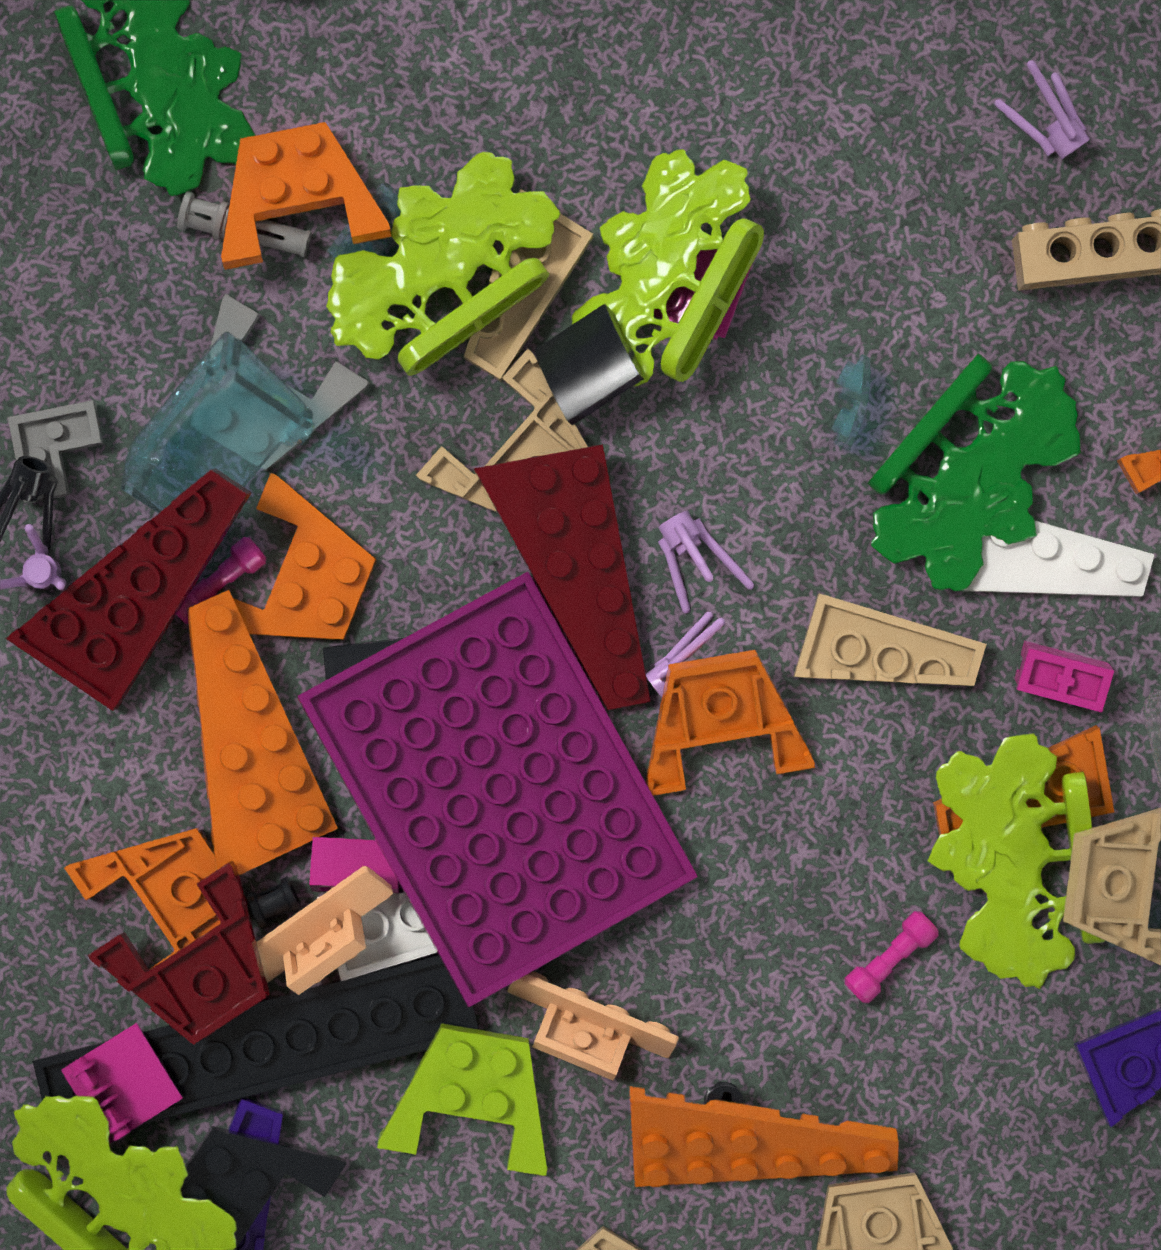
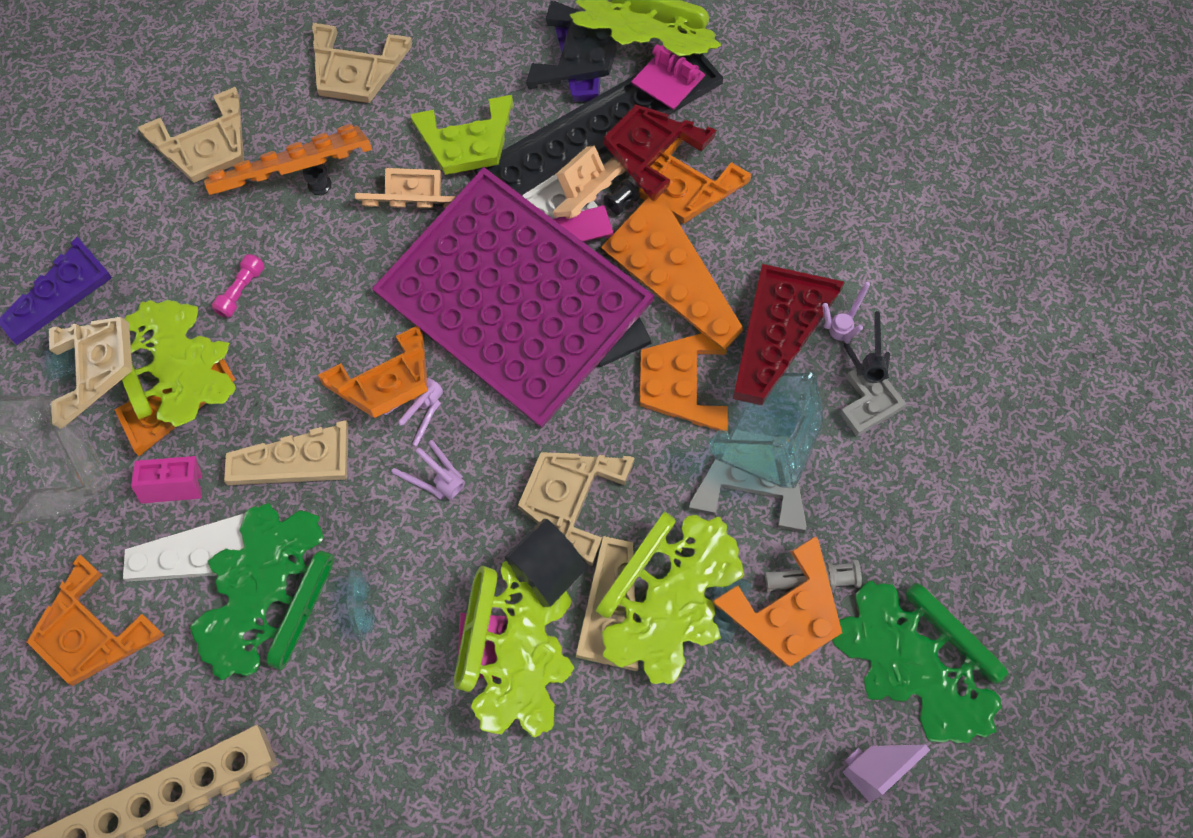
camera: 160 degrees right, 20 degrees down
(244, 558) = (721, 375): dark pink piece -> none
(570, 539) = (519, 450): dark red wing -> none

